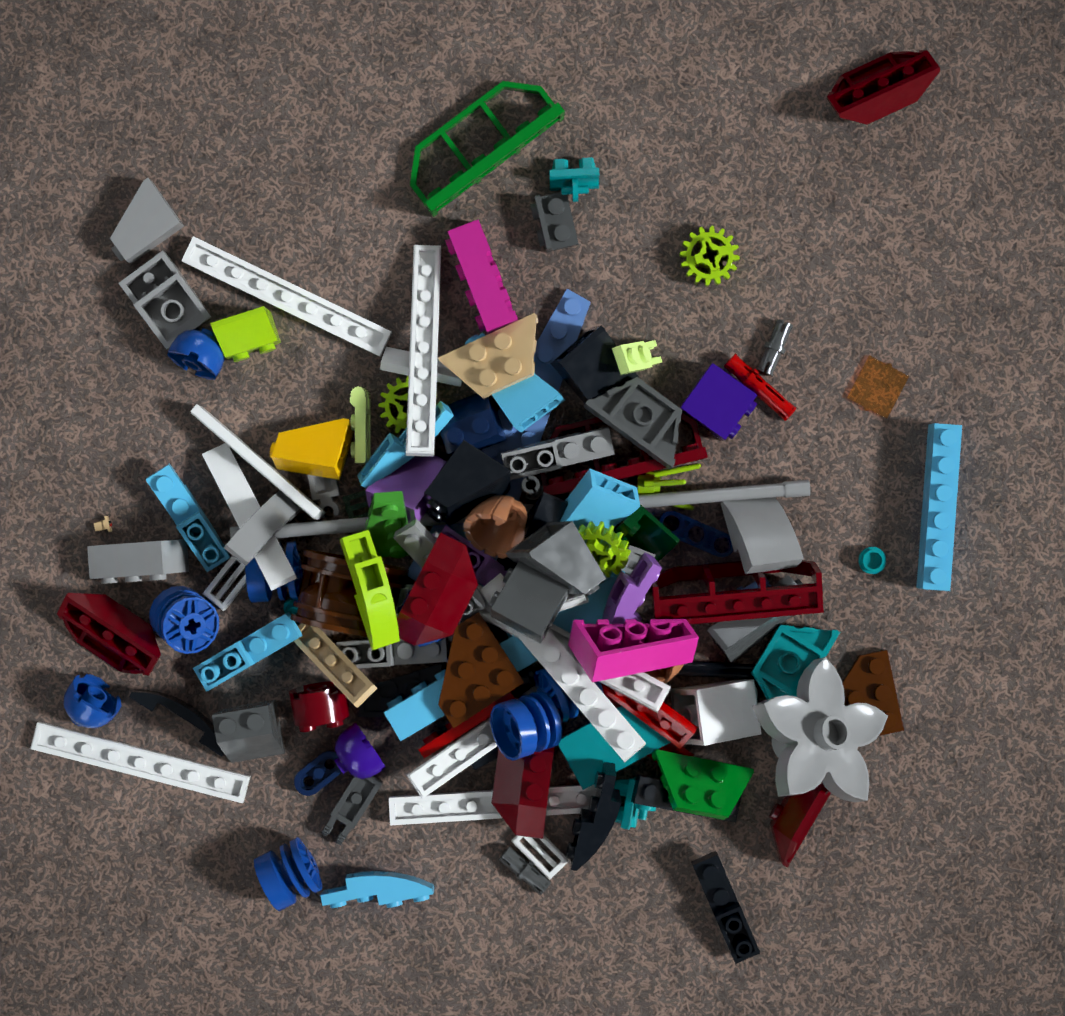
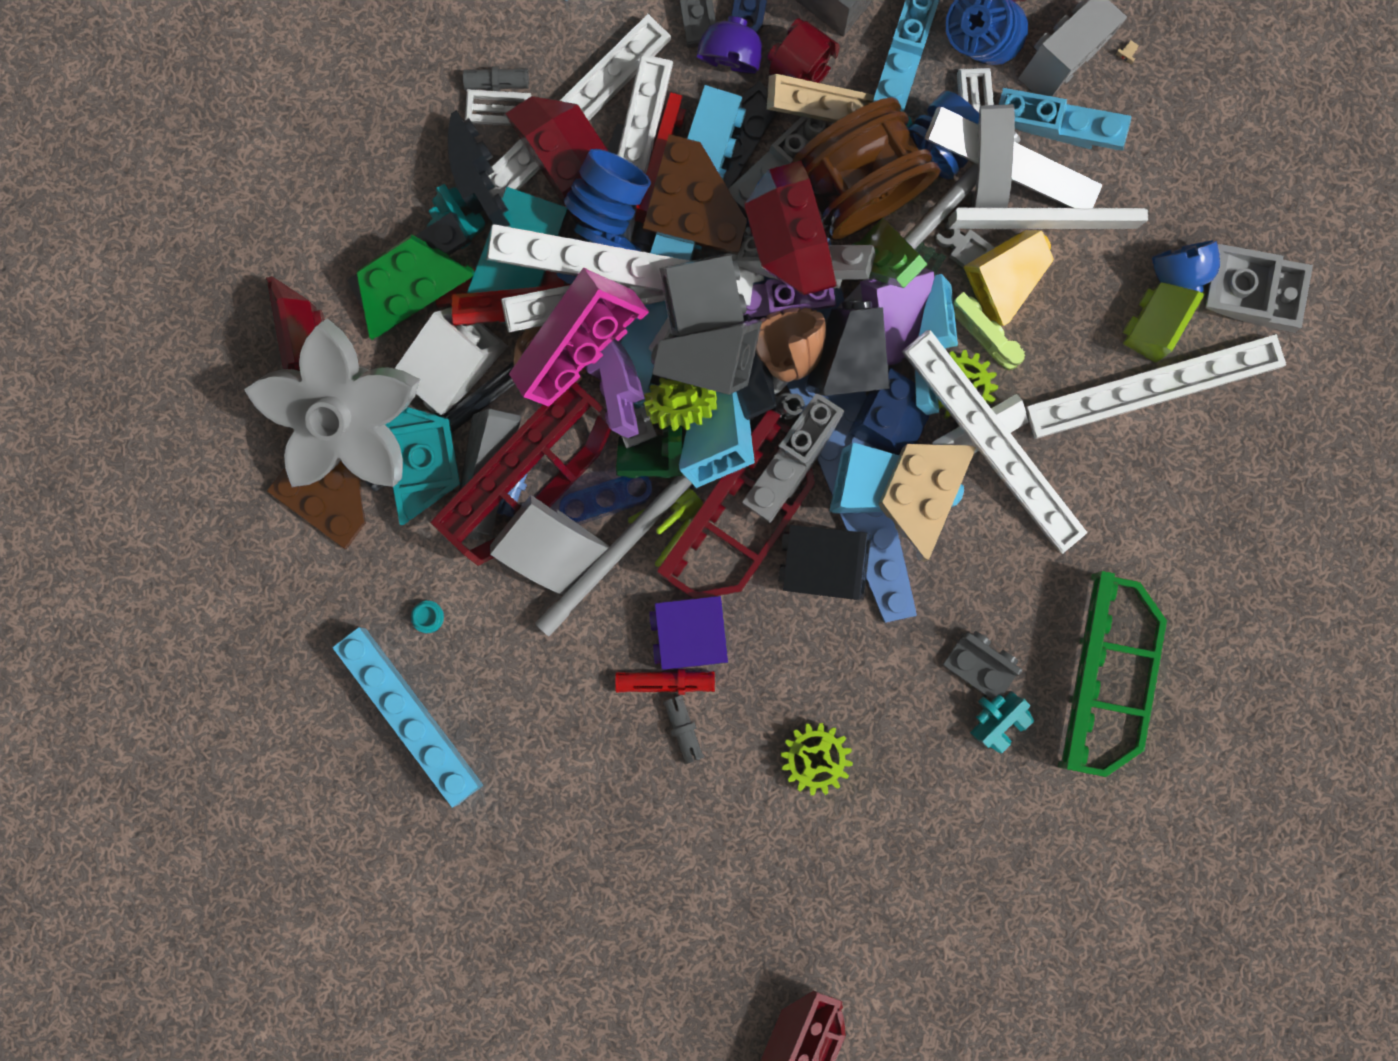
camera: 140 degrees right, 5 degrees down
(144, 224) = (1338, 338): light grey slope -> none
(372, 589) = (853, 174): lime slope -> none
(482, 277) = (1002, 555): dark pink wedge -> none
(635, 356) = (802, 604): yellowish green hinge -> none
(641, 417) = (747, 554): dark grey wing -> none
(725, 907) = (290, 198): black slope -> none
(877, 387) = (559, 778): clear orange piece -> none

